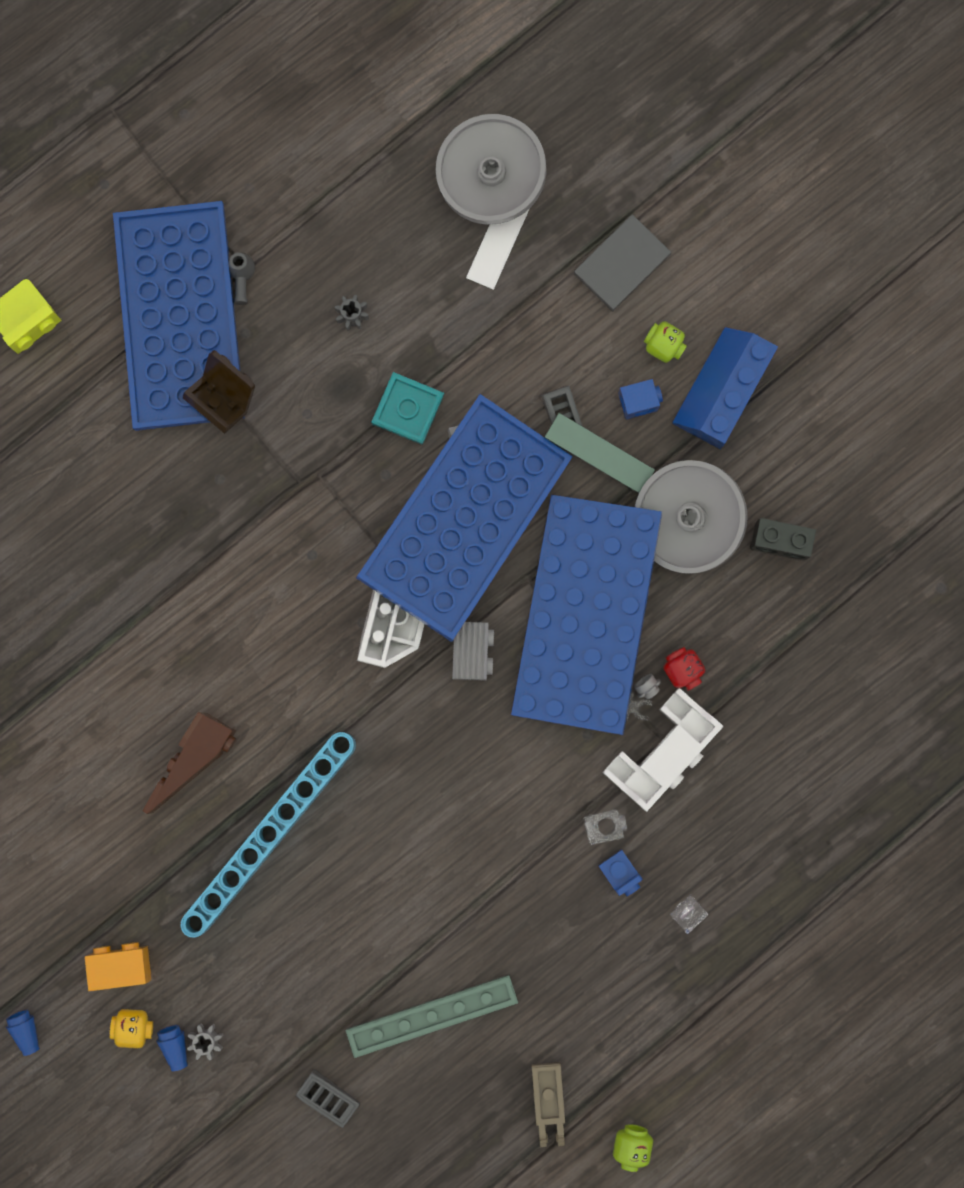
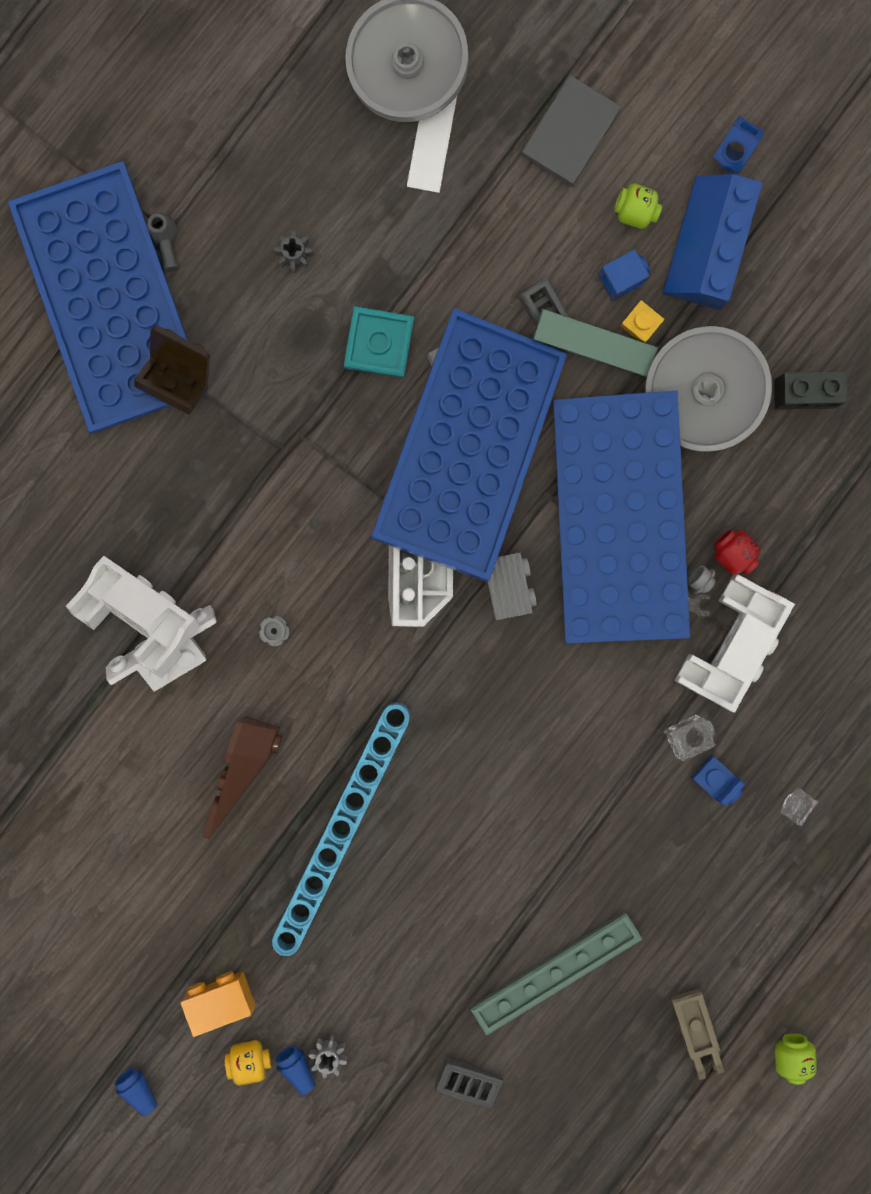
camera: 15 degrees left, 5 degrees up
(139, 593) = (140, 607): none -> white bracket
(151, 641) = (191, 657): none -> white bracket
(246, 637) = (270, 623): none -> light grey plate
(647, 444) = (642, 322): none -> yellow plate
(775, 304) = (743, 133): none -> blue brick

